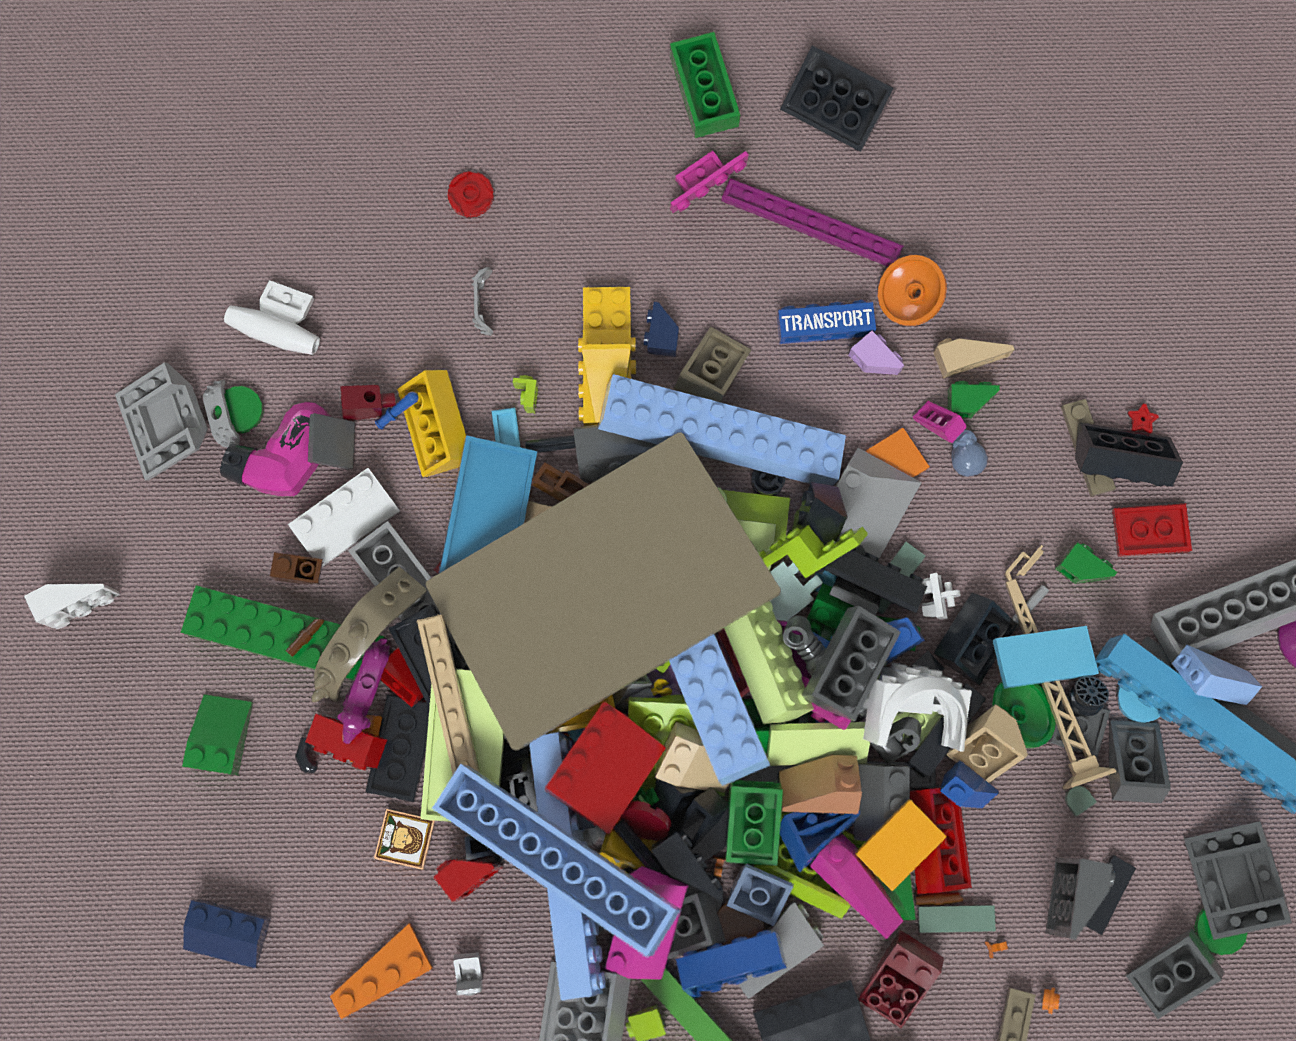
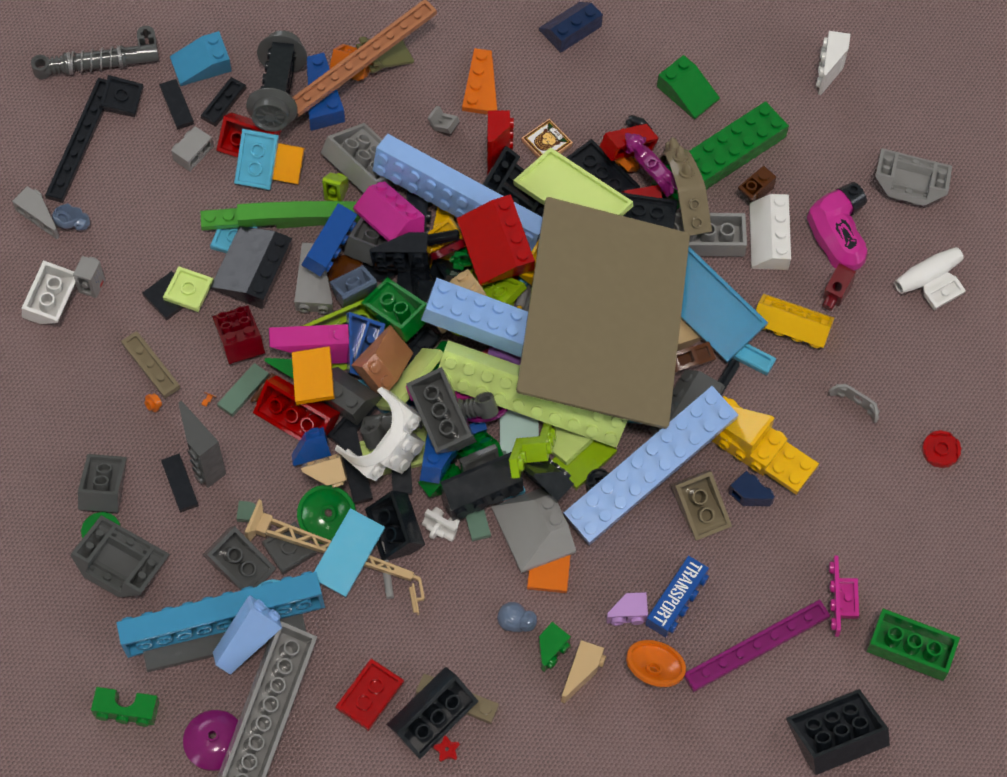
camera: 125 degrees right, 15 degrees down
(221, 428) = (885, 204): light grey piece -> none
(243, 407) = (889, 223): green tile -> none
(304, 637) = (709, 157): reddish brown piece -> none
(331, 441) = (825, 253): dark grey tile -> none
(392, 413) = (818, 300): blue piece -> none
(447, 692) = (596, 194): tan tile -> none
(528, 397) = (769, 385): lime bracket -> none
(557, 860) = (465, 176): light blue brick -> none
(948, 431) = (547, 611): dark pink slope -> none
(1083, 566) = (383, 627): green slope -> none
(1097, 694) = (301, 561): black wheel -> none

